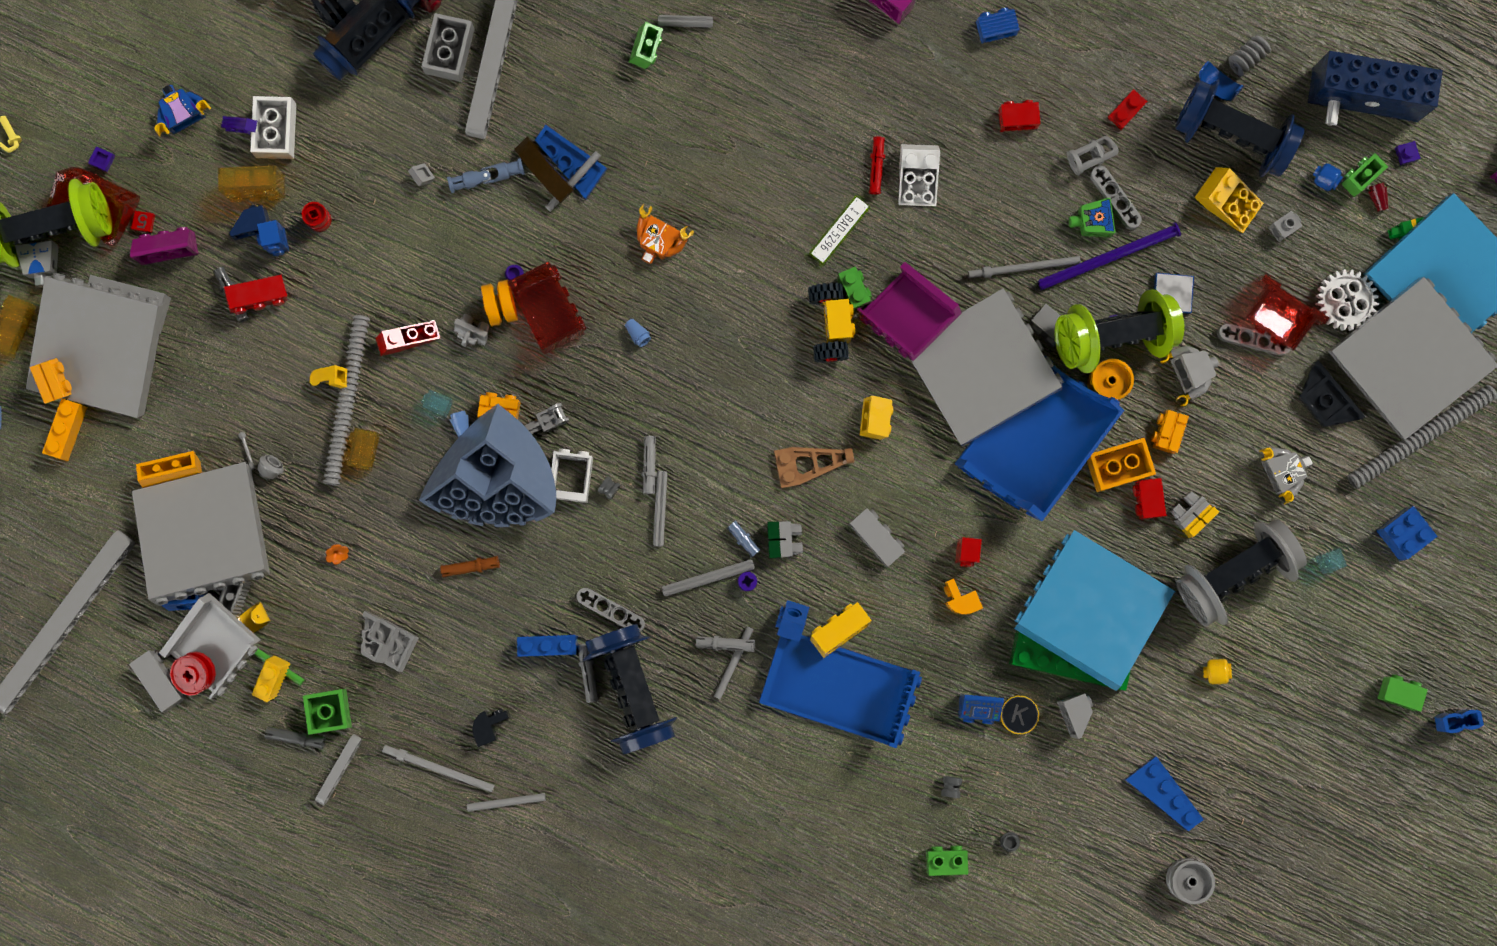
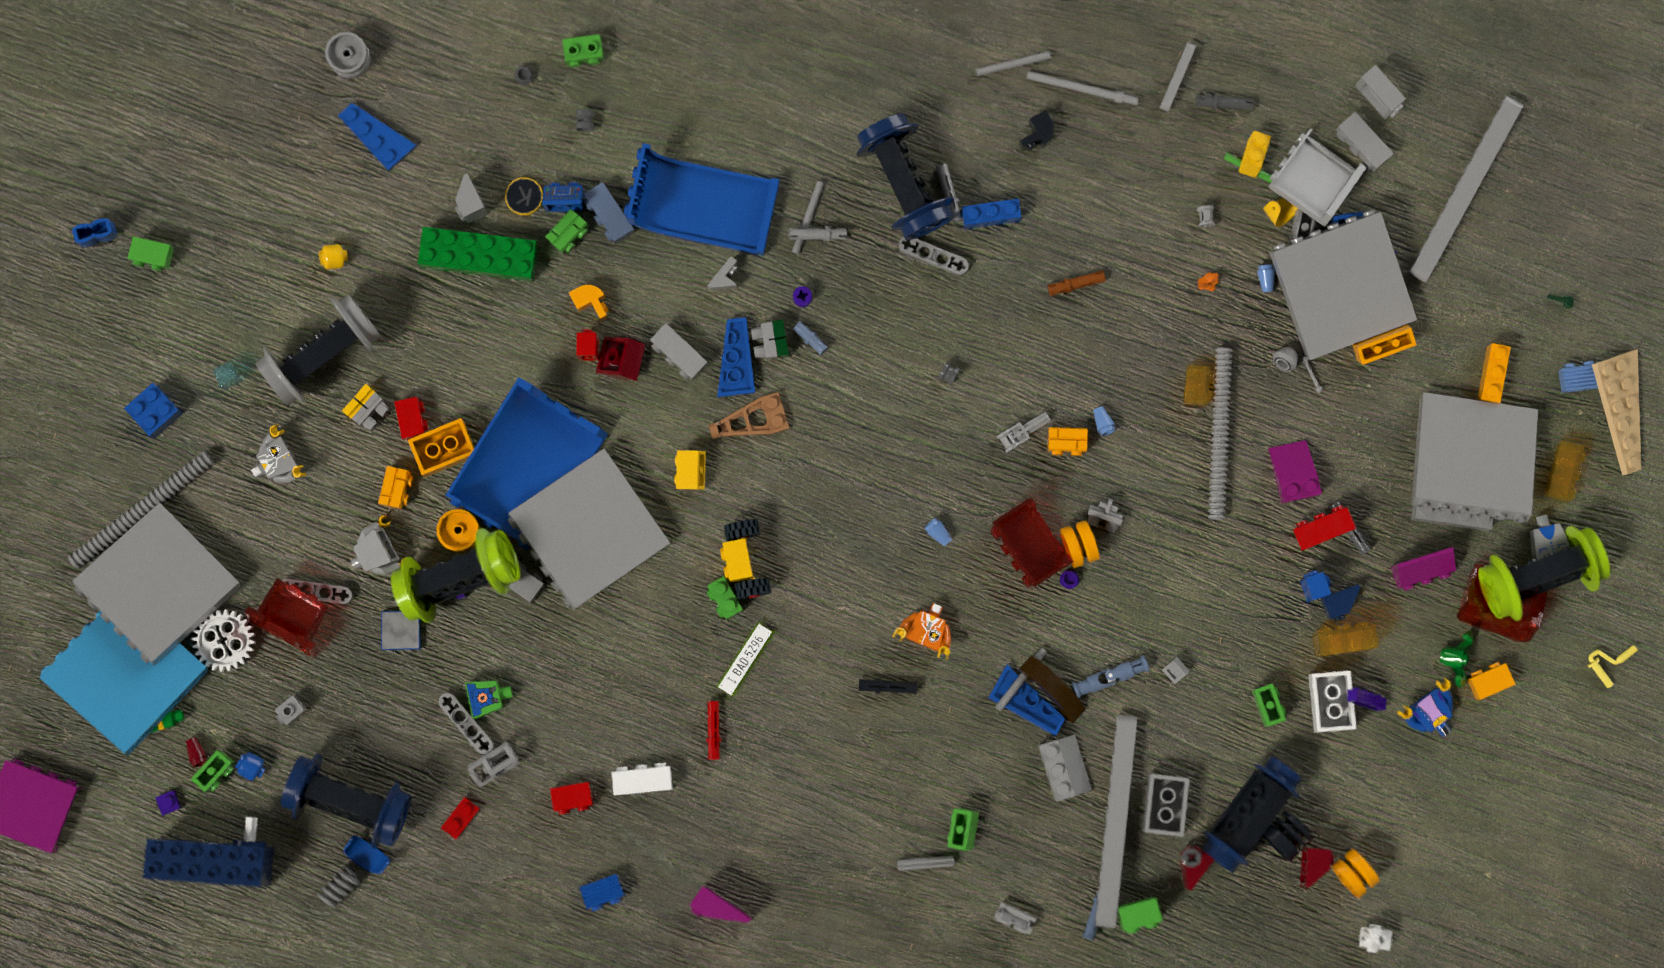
camera: 175 degrees left, 0 degrees up
(51, 380) = (1511, 416): light orange brick -> none
(101, 159) = (1502, 652): dark purple plate -> none
(116, 132) = (1490, 681): none -> light orange brick
(131, 729) = (1381, 92): none -> light grey window
(143, 221) = (1450, 593): red tile -> none
(145, 157) = (1457, 658): none -> green piece
(192, 673) = (1330, 151): red wheel -> none
(277, 354) = (1294, 472): none -> magenta slope
(277, 552) = (1266, 277): none -> medium blue cone
(316, 216) = (1275, 614): red wheel -> none
(327, 711) = (1196, 128): bright green brick -> none
(329, 376) = (1233, 453): yellow leg -> none
(329, 620) = (1206, 216): none -> light grey bush
(335, 130) = (1269, 705): none -> bright green brick
(386, 642) = (1148, 202): light grey slope -> none
(406, 337) = (1167, 502): slope -> none
(437, 403) = (1129, 439): clear light blue brick -> none
(493, 475) = (1063, 371): sand blue brick -> none
(541, 94) = (1064, 768): none -> light grey slope
(581, 456) = (992, 361): white window -> none
(649, 465) = (911, 400): light grey pin -> none
(660, 506) = (896, 363): light grey axle -> none
(703, 189) = (911, 687): none -> black pin
(707, 578) = (841, 296): light grey axle -> none
(792, 620) = (754, 260): blue brick -> none
(820, 520) = (736, 365): none -> blue wing
(827, 606) = (721, 279): none -> light grey slope
(840, 629) = (707, 258): yellow brick -> none
(910, 313) = (667, 576): magenta panel -> none
(918, 174) = (669, 725): white slope -> none
(936, 537) = (620, 358): none -> dark red slope
(936, 687) = (608, 213): none -> sand blue brick
(950, 125) = (642, 779): none -> white brick
(978, 672) = (567, 232): none -> bright green brick
(987, 272) = (590, 632): light grey bar -> none
(1094, 610) = (460, 300): dark azure brick -> none
(1109, 256) = (468, 660): dark purple axle -> none
(1229, 198) = (349, 733): yellow slope -> none
(1327, 399) = (238, 537): black wing -> none

